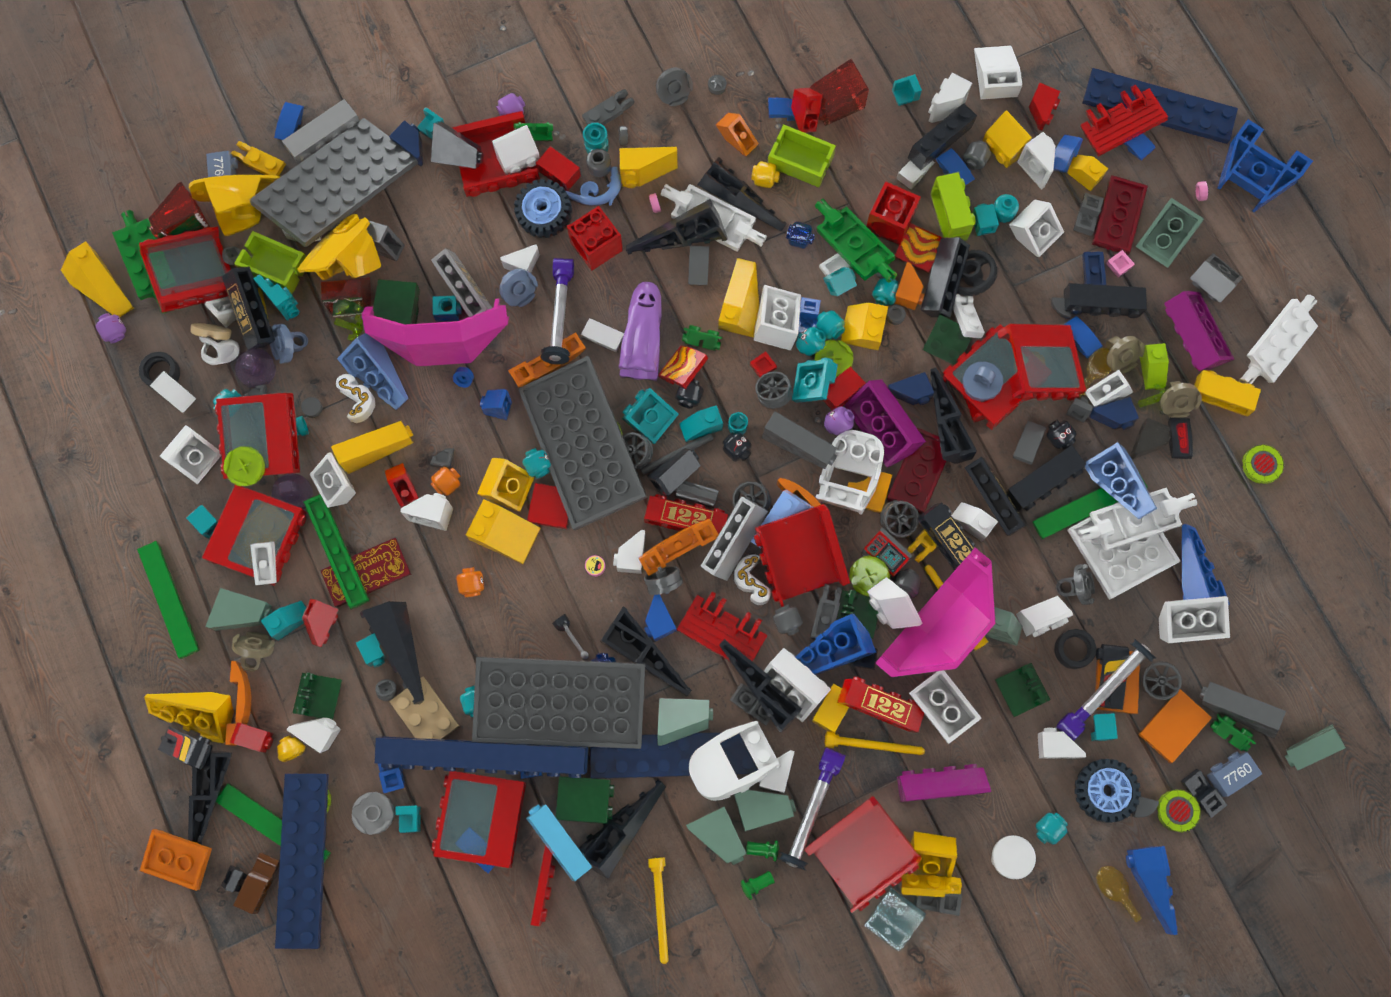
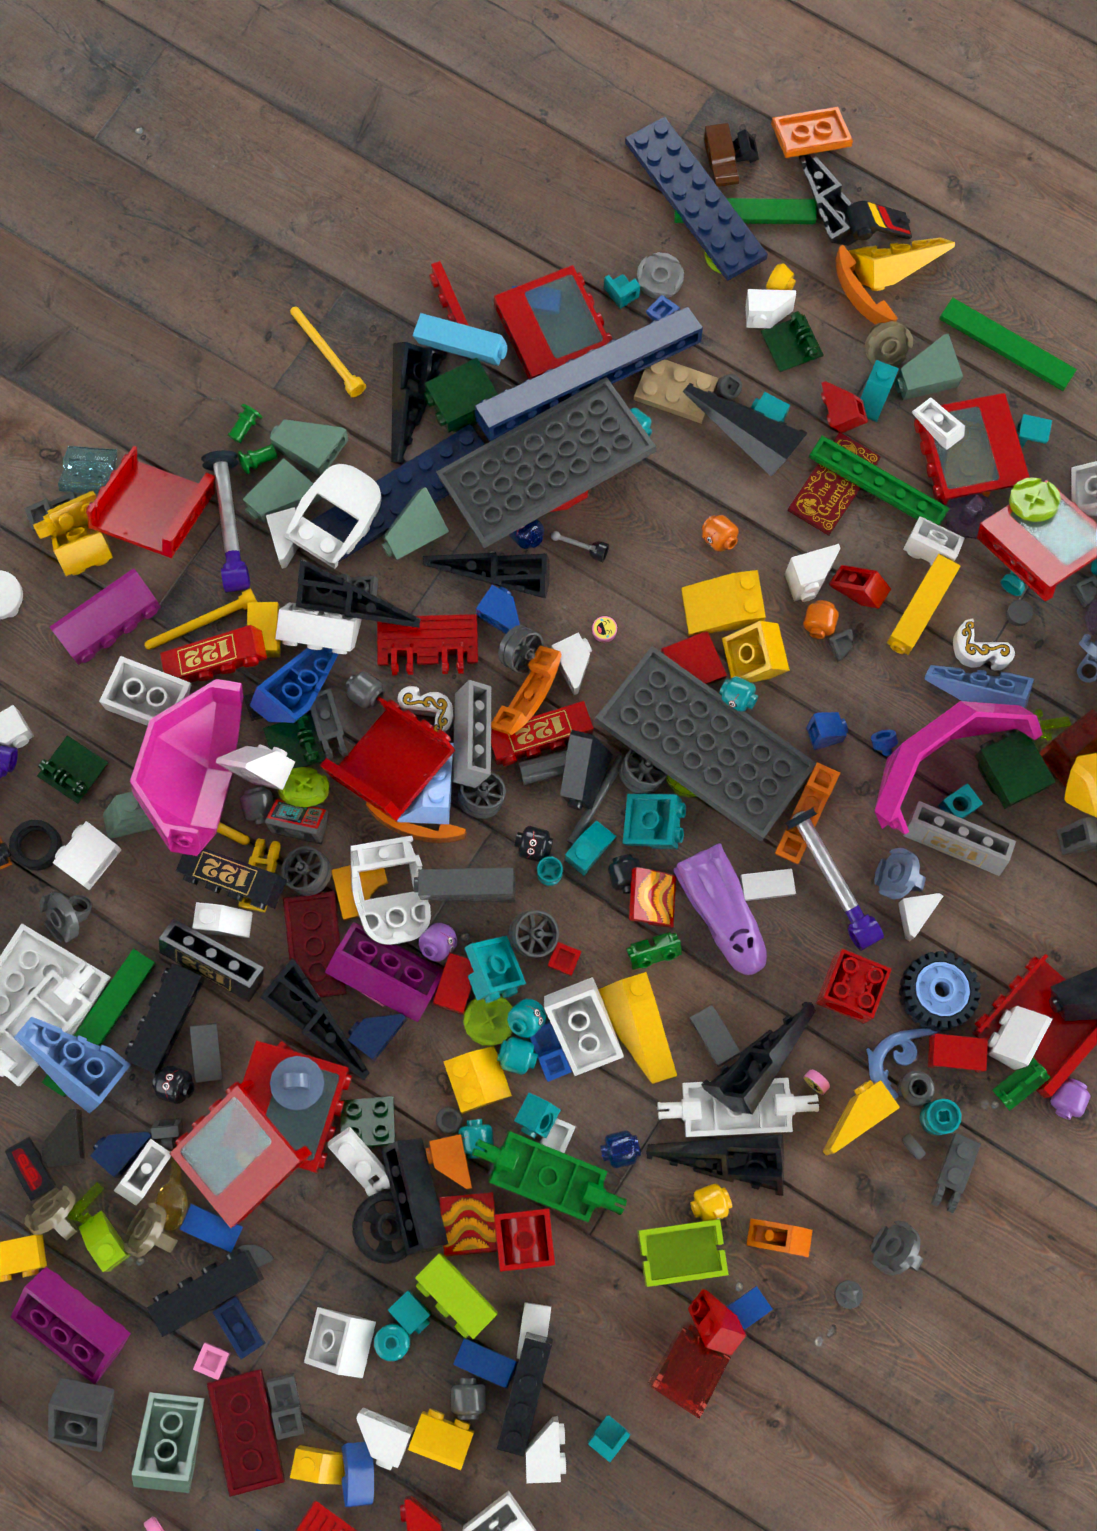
camera: 145 degrees right, 0 degrees up
(252, 737) = (823, 266): slope -> none

